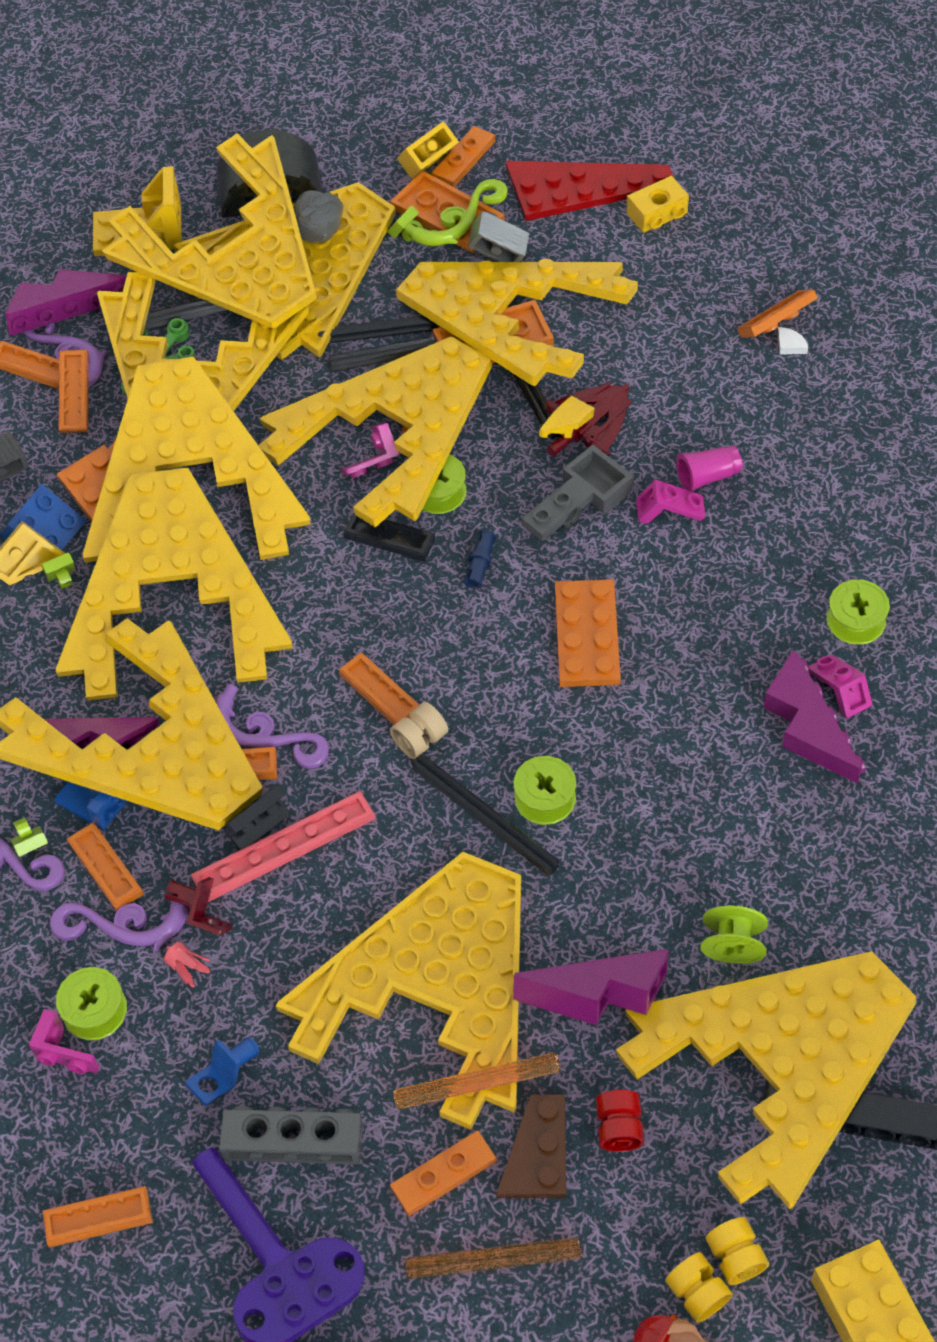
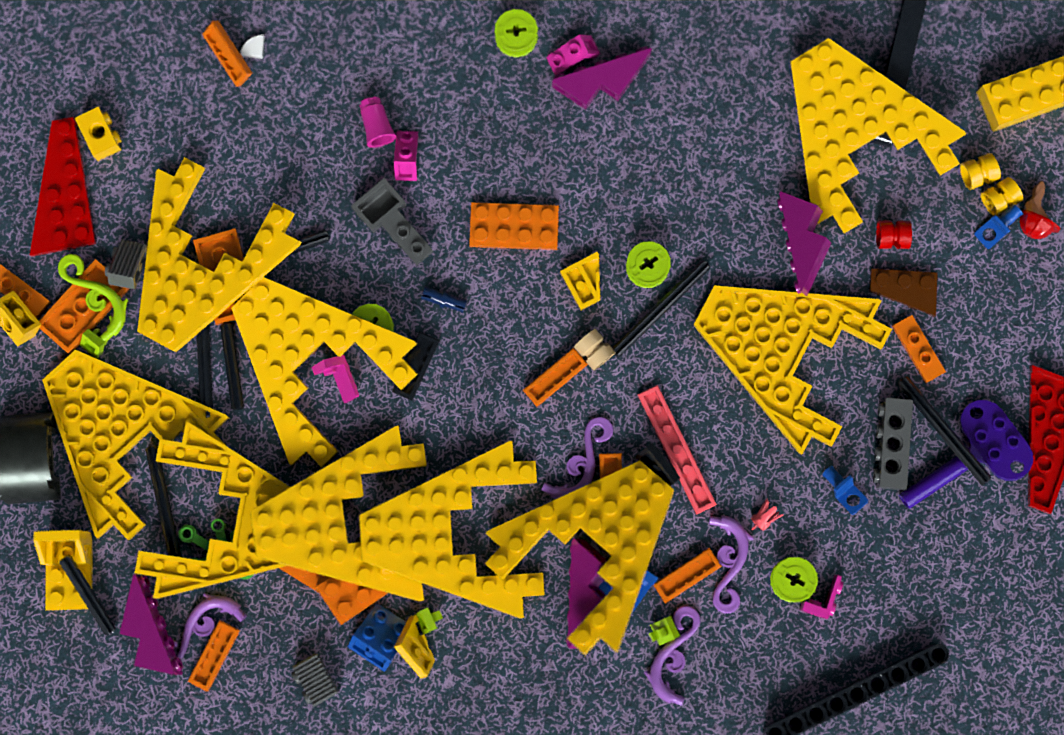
camera: 90 degrees left, 25 degrees up
(73, 390) = (252, 616): orange plate -> none
(94, 249) = (87, 594): none -> black axle
(97, 1216) = (940, 570): orange plate -> none
(197, 902) = (722, 507): dark red bracket -> none
(255, 274) = (152, 459): yellow wing -> none
(309, 1206) = (944, 430): none -> black axle
(318, 215) = (94, 414): dark grey helmet -> none
(476, 1080) = (865, 322): clear orange axle -> none
(493, 1258) = (975, 320): clear orange axle -> none
(516, 716) = (584, 281): none -> yellow wing
(566, 417) = (325, 221): yellow slope -> none
(605, 400) = (323, 214): dark red bar -> none
(650, 1285) = (999, 225): none -> blue bracket
(734, 930) = (772, 147): lime piece -> none

